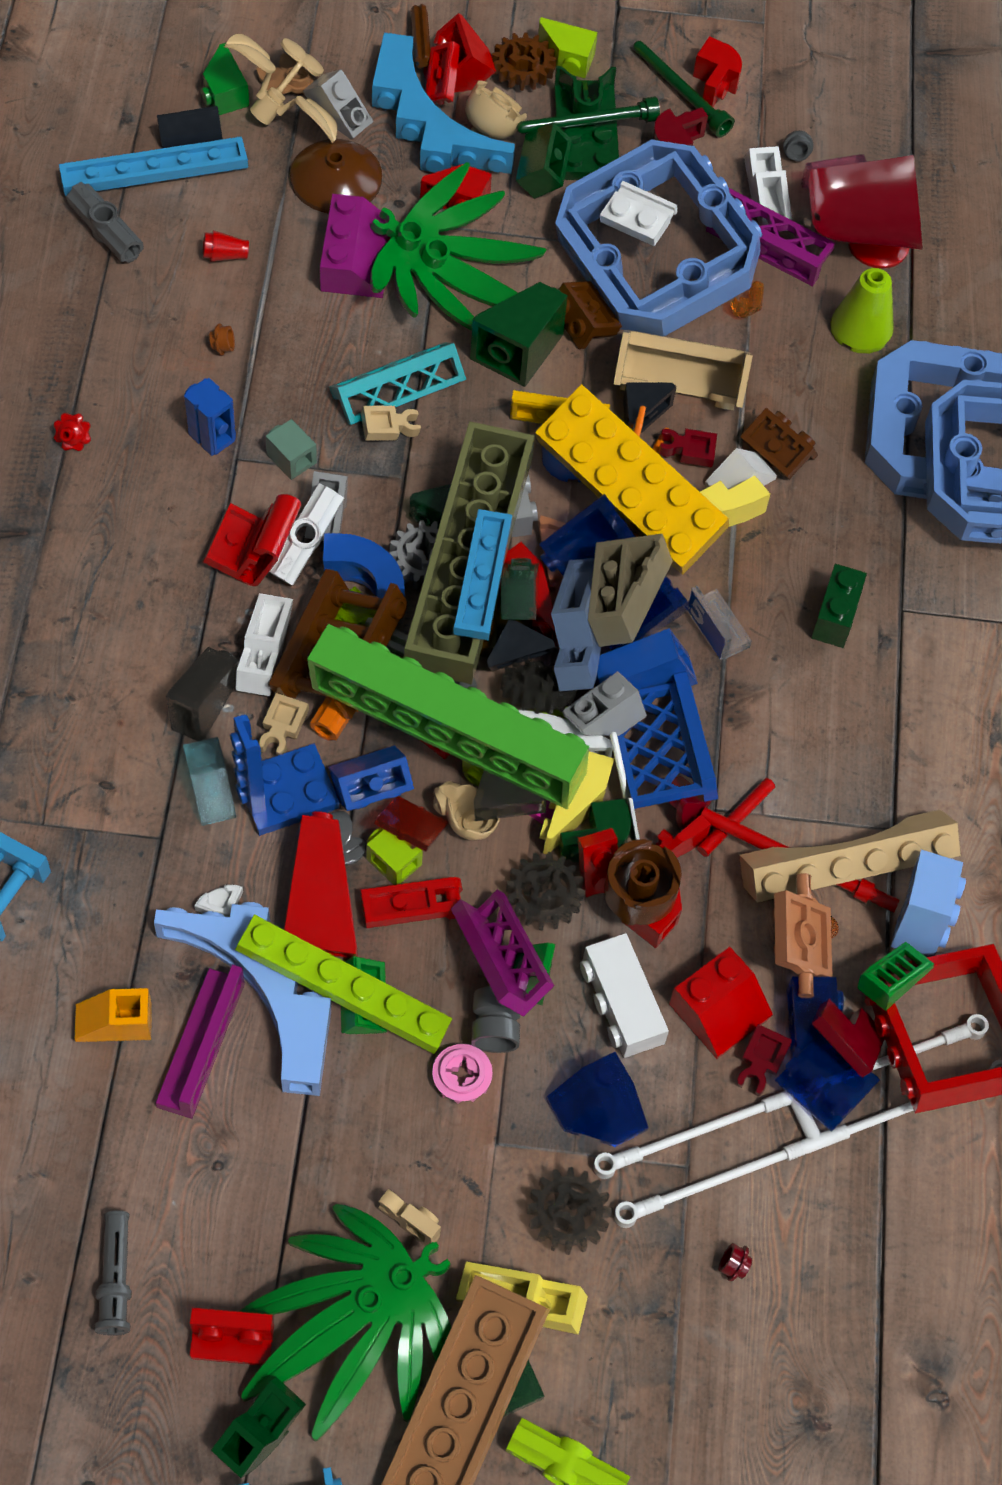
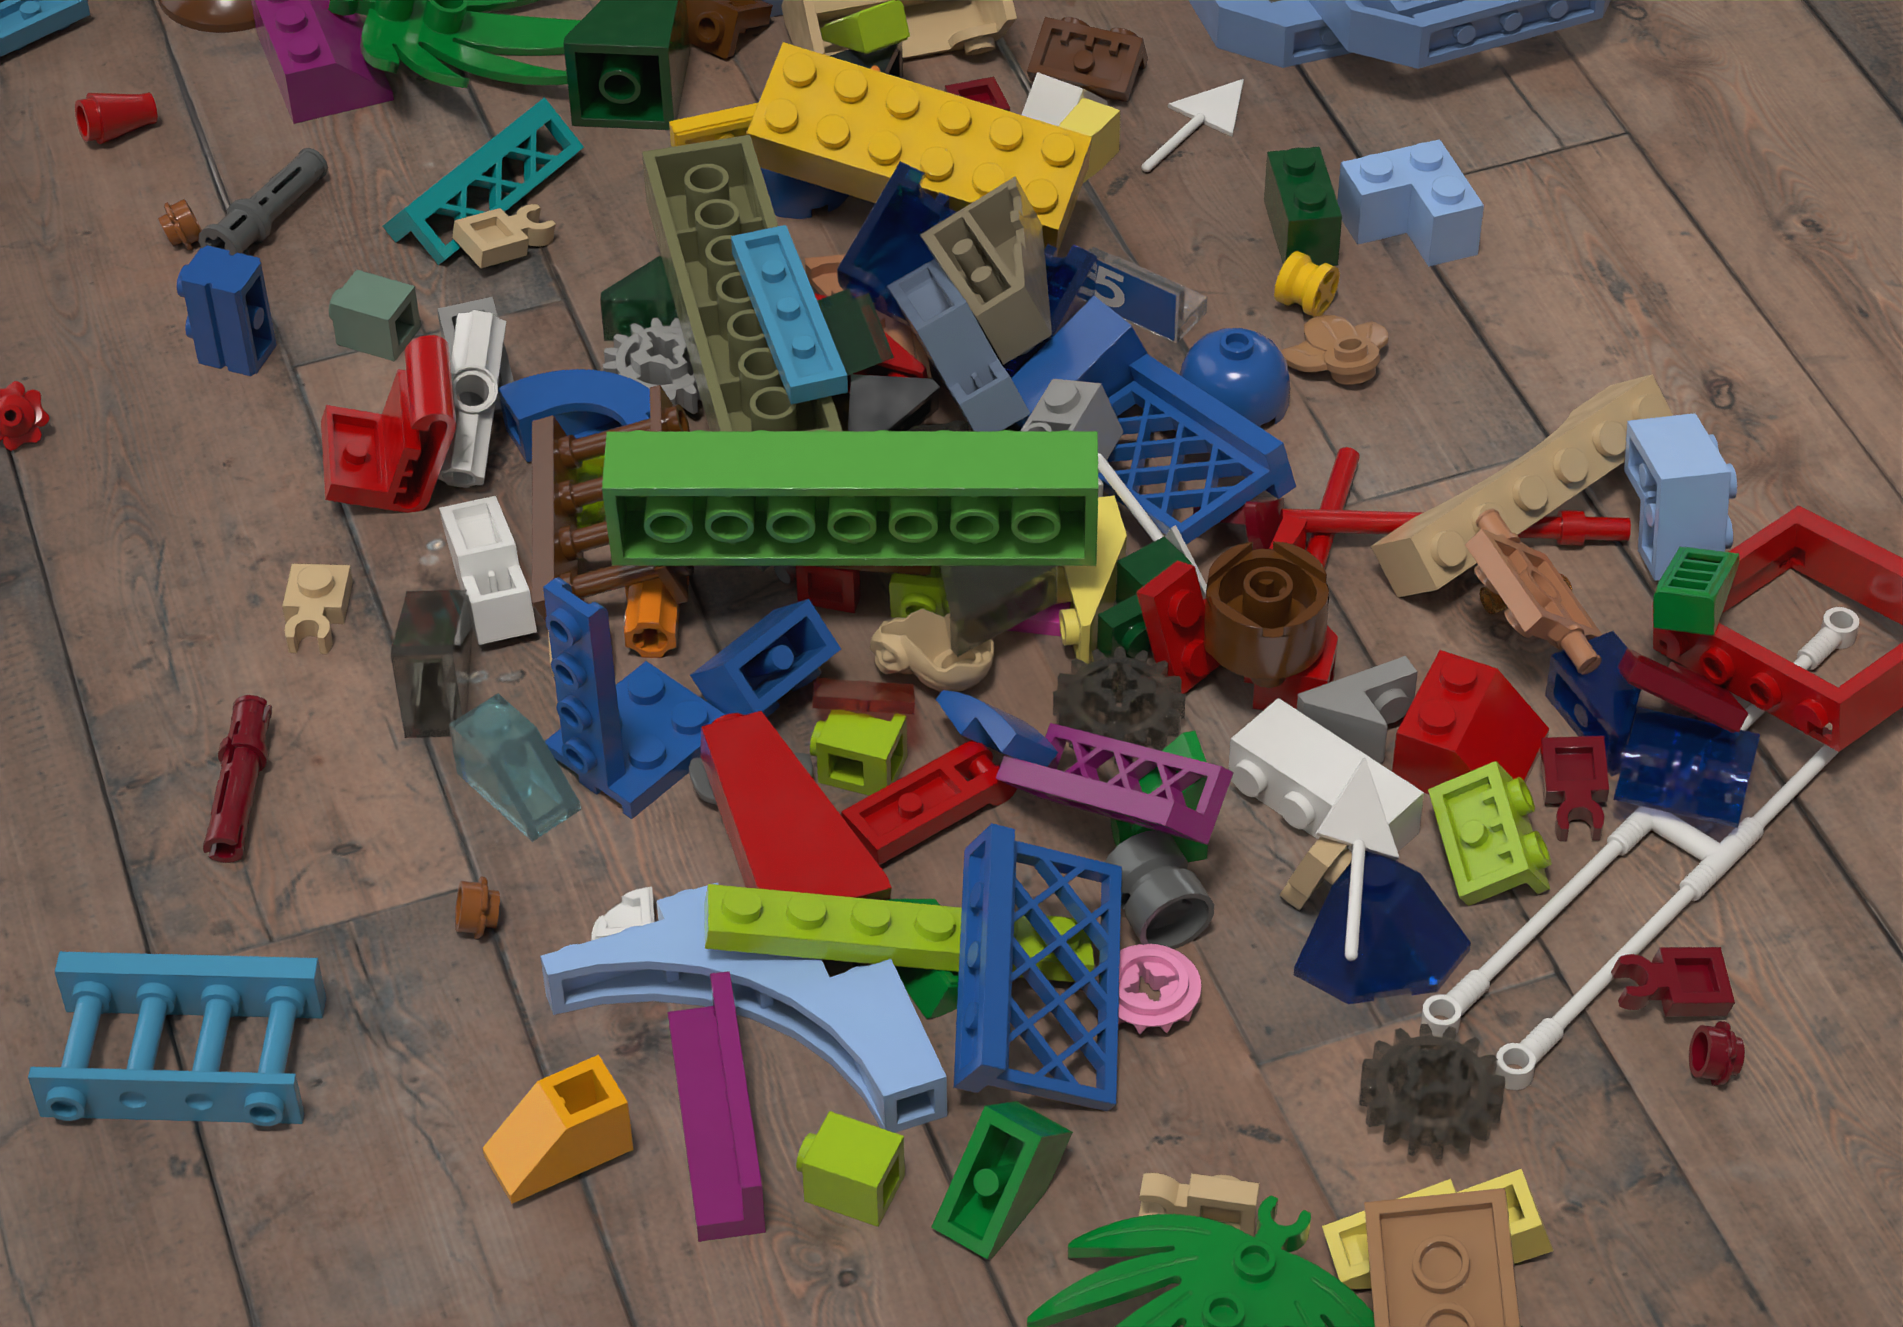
camera: 20 degrees left, 15 degrees down
(78, 708) = (241, 760): none -> dark red pin
(148, 857) = (476, 907): none -> dark orange plate
(167, 621) = (313, 601): none -> tan plate
(248, 1108) = (852, 1168): none -> lime brick
(259, 352) = (251, 219): none -> dark grey pin
(320, 1150) = (1000, 1176): none -> green slope
(374, 1027) = (987, 975): none -> blue fence
(471, 877) = (996, 728): none -> blue slope
(590, 1048) = (1322, 862): none -> tan plate
(613, 1042) = (1360, 823): none -> white piece
(657, 375) = (869, 28): none -> lime slope
(663, 953) = (1363, 704): none -> light grey slope
(695, 1070) = (1490, 833): none -> lime bracket
(732, 707) = (1241, 372): none -> blue cylinder
(744, 1210) = (1683, 978): none -> dark red plate
(806, 708) = (1339, 347): none -> medium nougat plate
(811, 658) = (1306, 284): none -> yellow wheel
(834, 505) = (1213, 108): none -> white piece
(909, 623) = (1412, 193): none -> light blue brick

